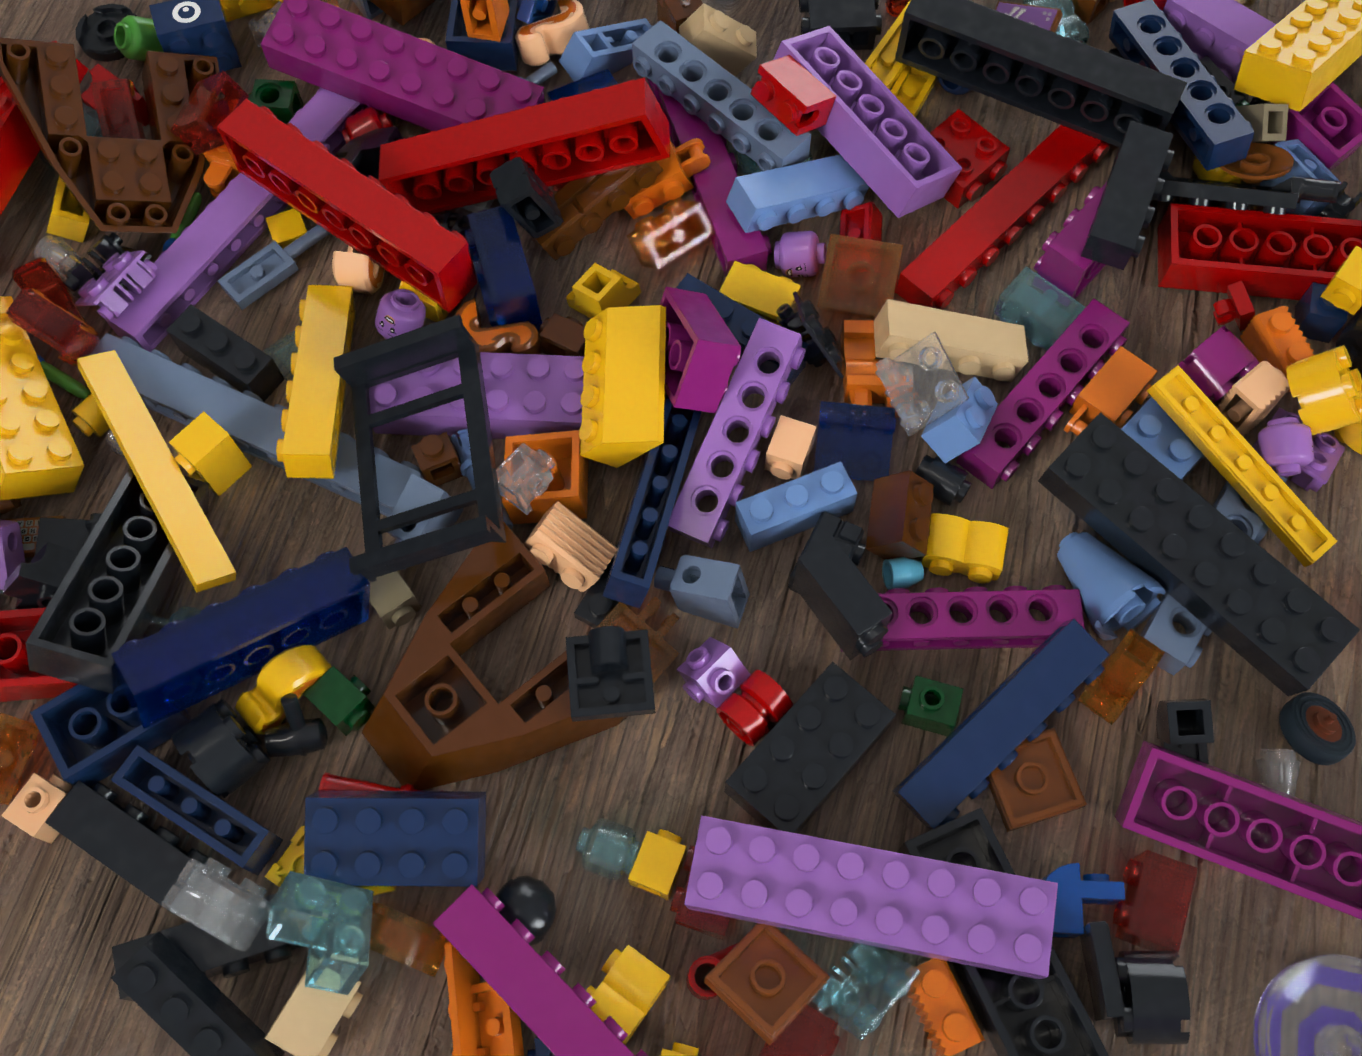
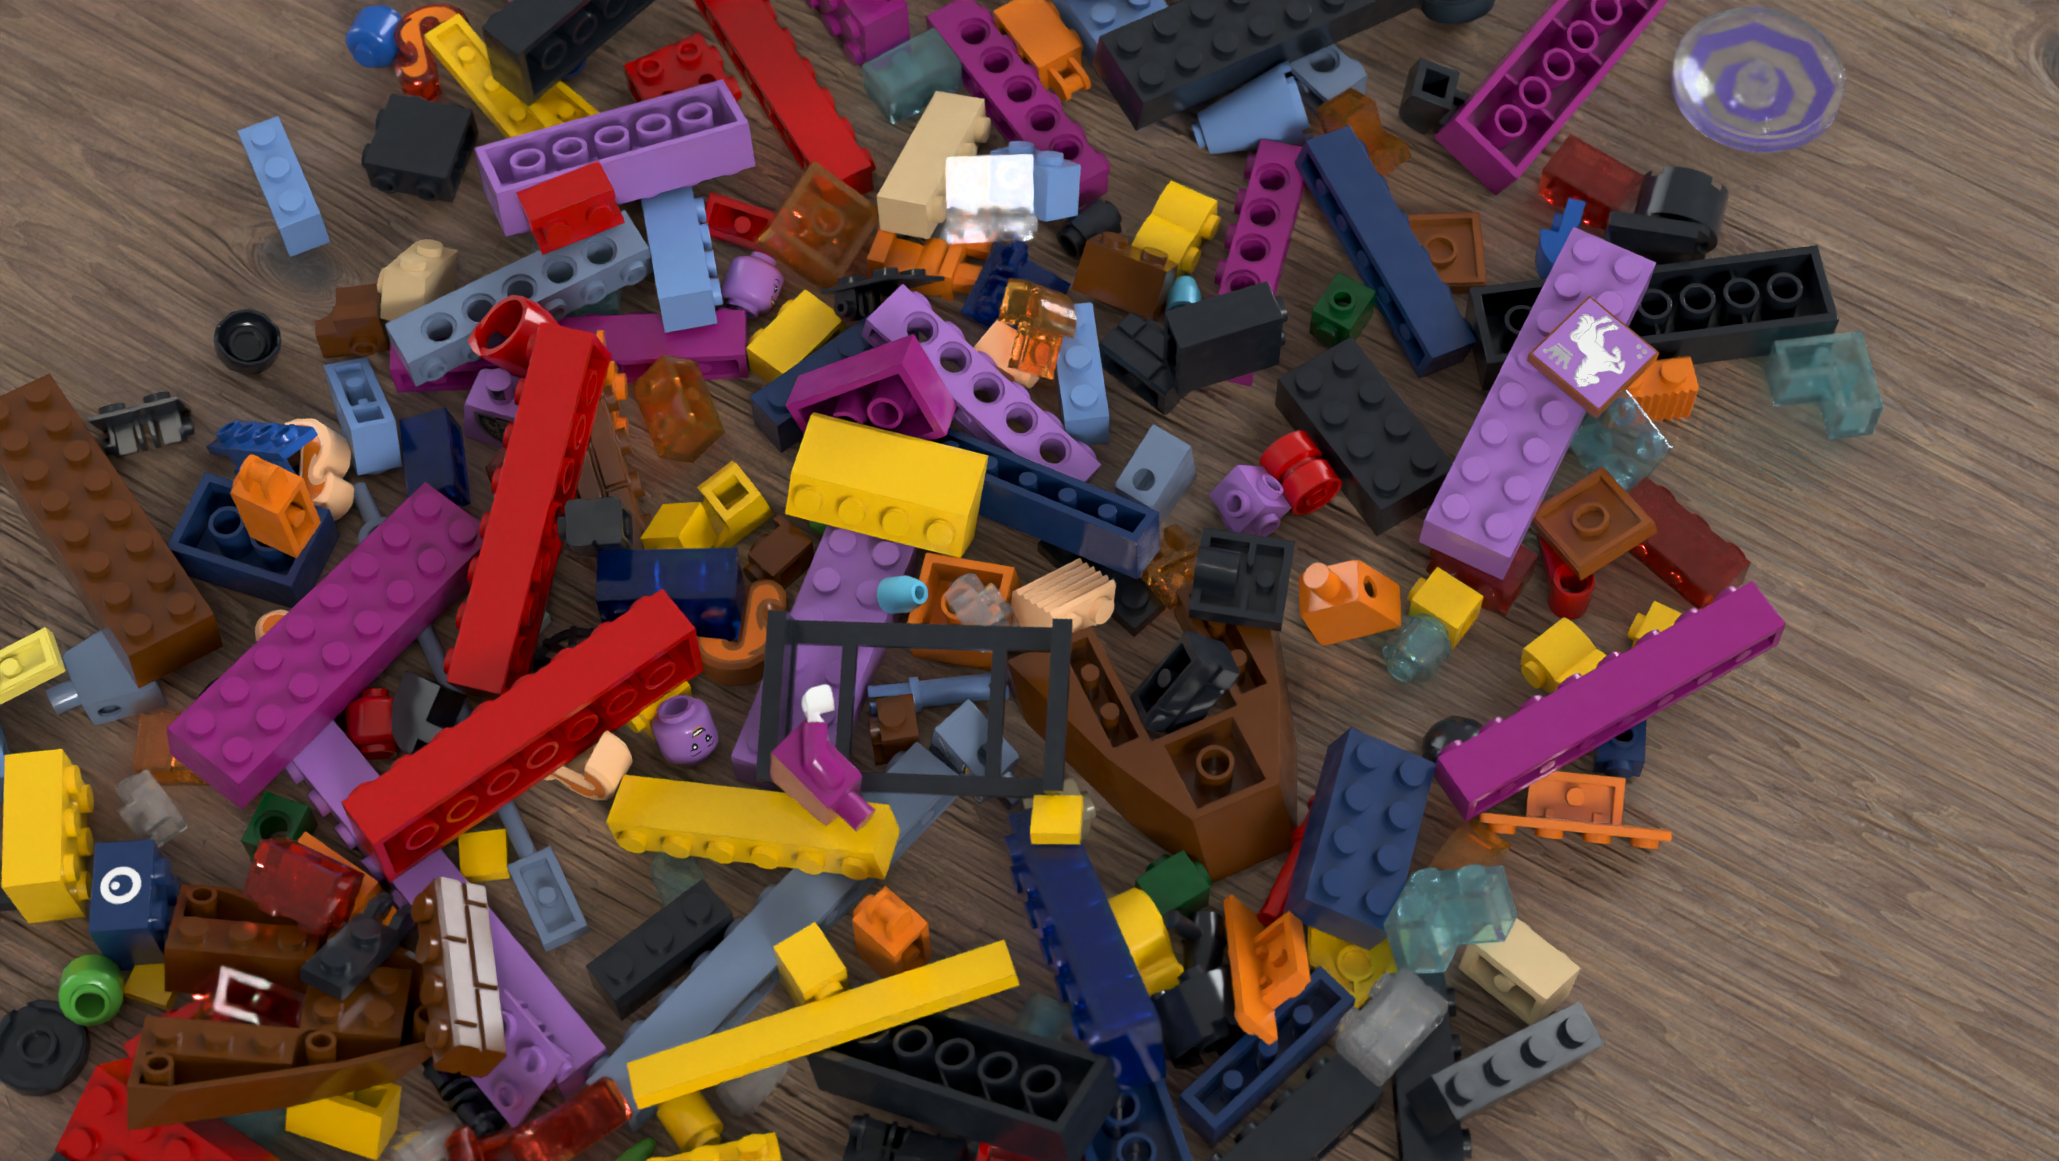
camera: 75 degrees left, 5 degrees down
(146, 220) = (459, 978): none -> brick
(169, 160) = (358, 948): none -> black hinge
(249, 498) = (890, 934): none -> orange brick
(255, 782) = (1265, 966): none -> orange bracket
(329, 384) = (816, 771): none -> magenta torso
(337, 582) = (1056, 819): none -> yellow tile
(502, 655) = (1185, 683): none -> black brick
(537, 415) = (901, 594): none -> medium azure hose
(556, 264) = (679, 528): none -> yellow brick
(624, 758) = (1347, 601): none -> orange torso
(677, 98) = (515, 320): none -> red piece
(816, 456) = (1041, 323): none -> clear orange brick
(911, 933) = (1592, 356): none -> tile
(1279, 769) = (1488, 41): clear cone -> none

